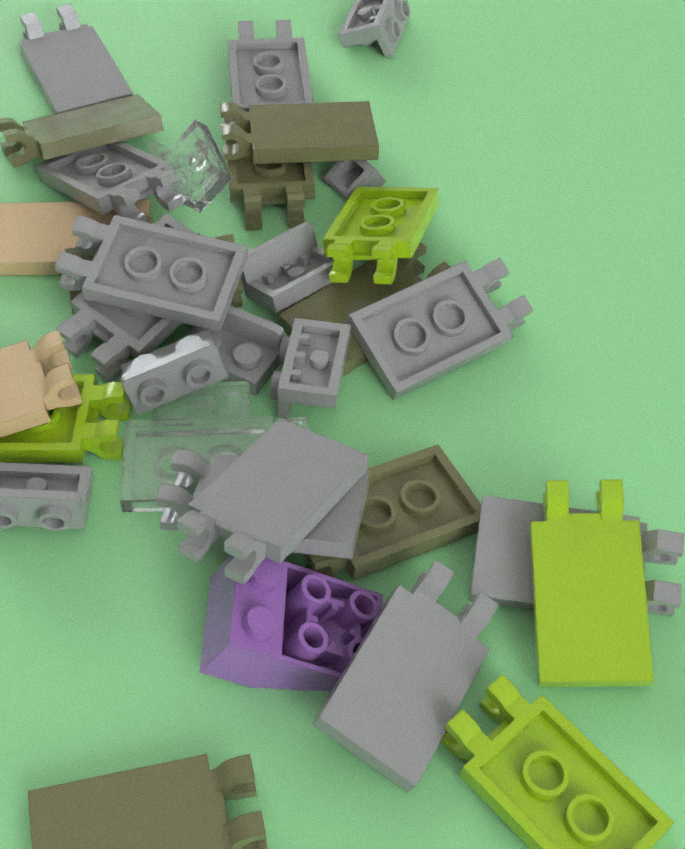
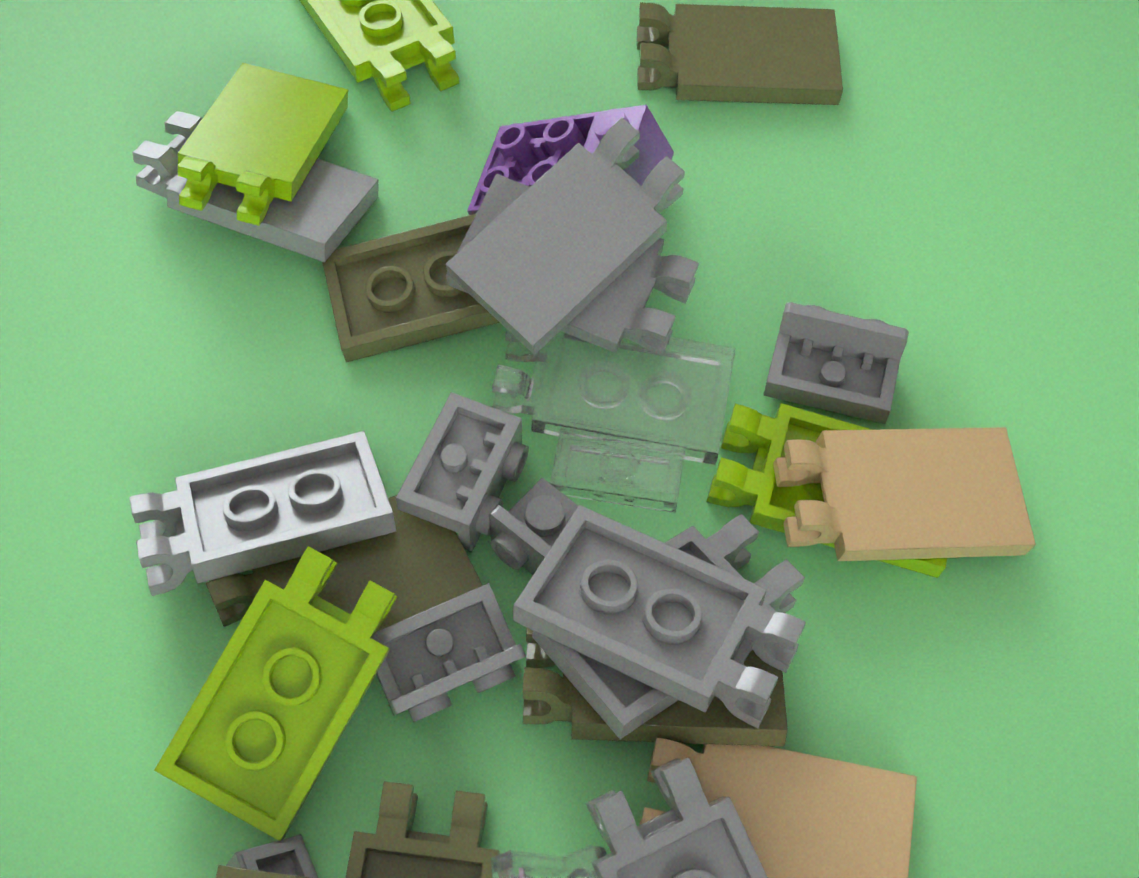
camera: 165 degrees left, 10 degrees up
(172, 371) = (652, 481): light grey bracket -> none
(407, 679) = (469, 113): light grey tile -> none

